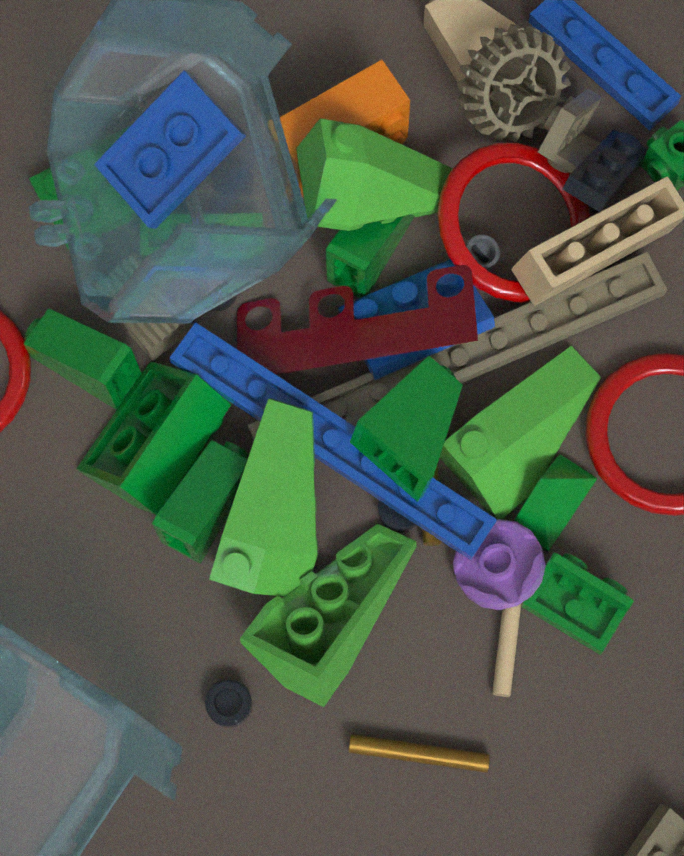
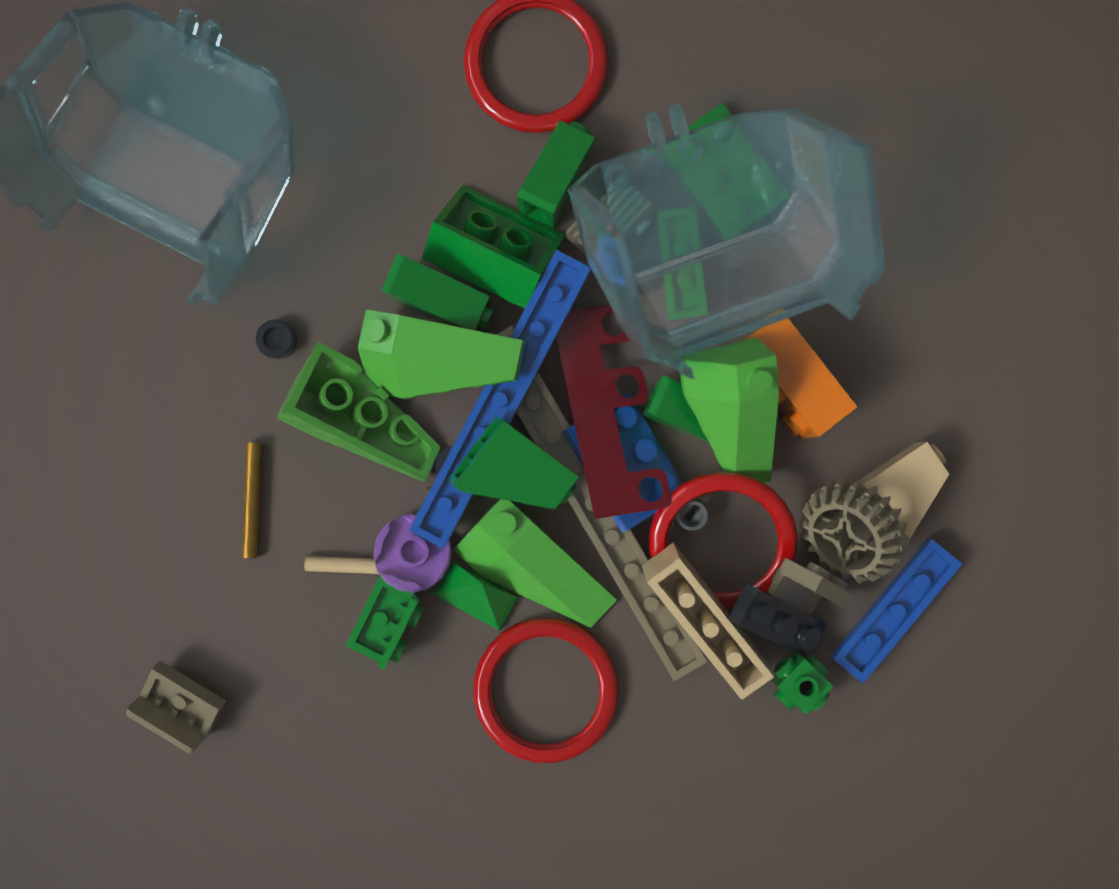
camera: 85 degrees right, 15 degrees up
(169, 150) = (748, 223): blue plate -> none

